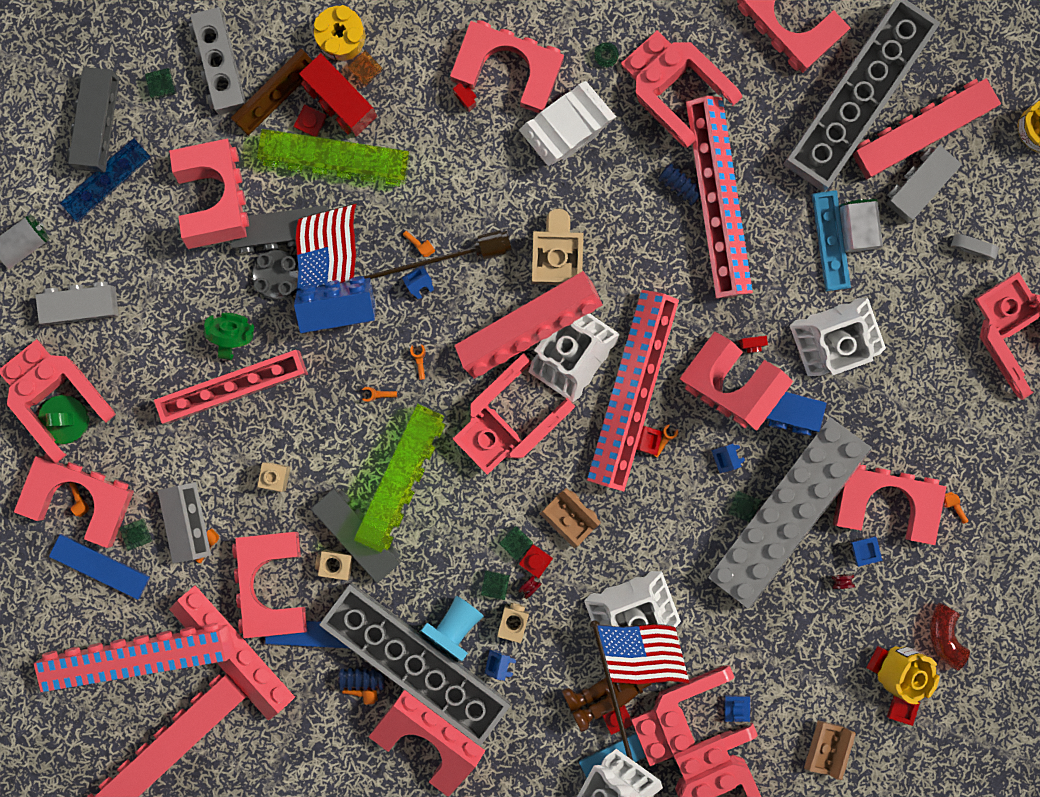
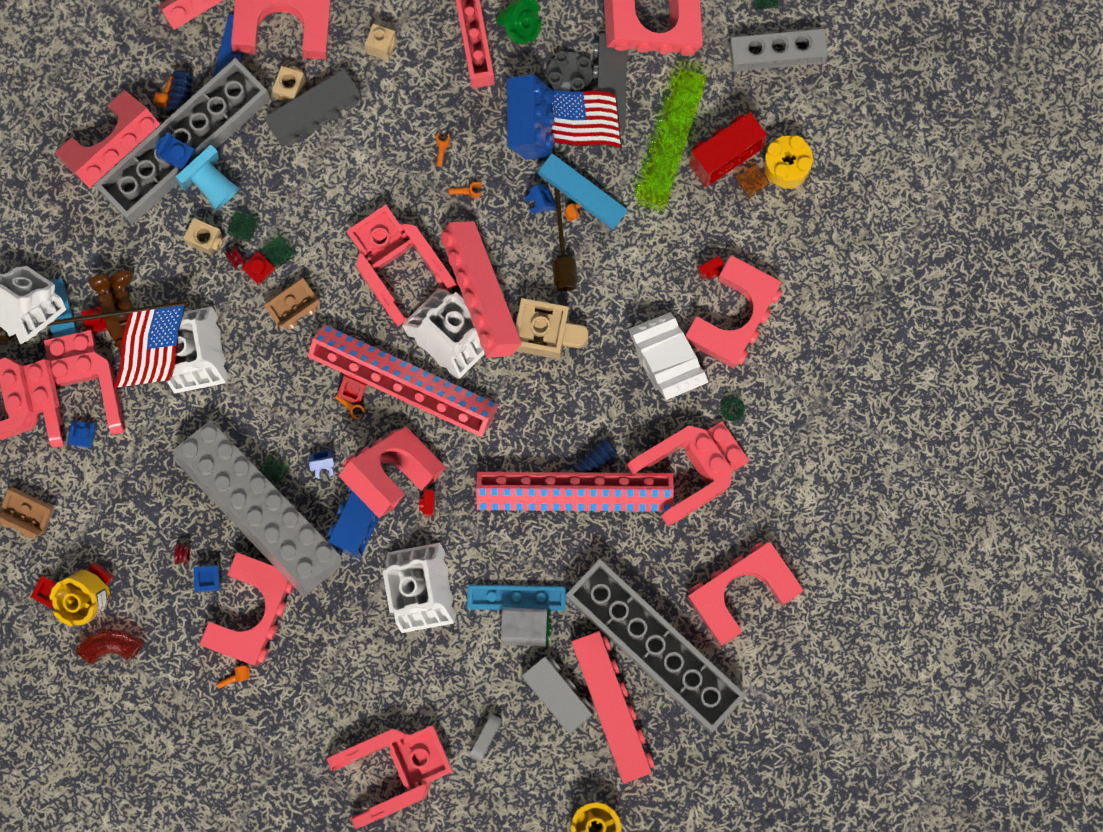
camera: 105 degrees right, 10 degrees down
(271, 93) = (739, 91): reddish brown tile -> none
(310, 121) = (709, 124): red plate -> none
(399, 478) = (356, 150): clear neon green brick -> none
(403, 240) = (582, 191): none -> dark azure tile
(433, 667) = (174, 151): none -> blue bracket
(498, 664) = (167, 217): blue tile -> none

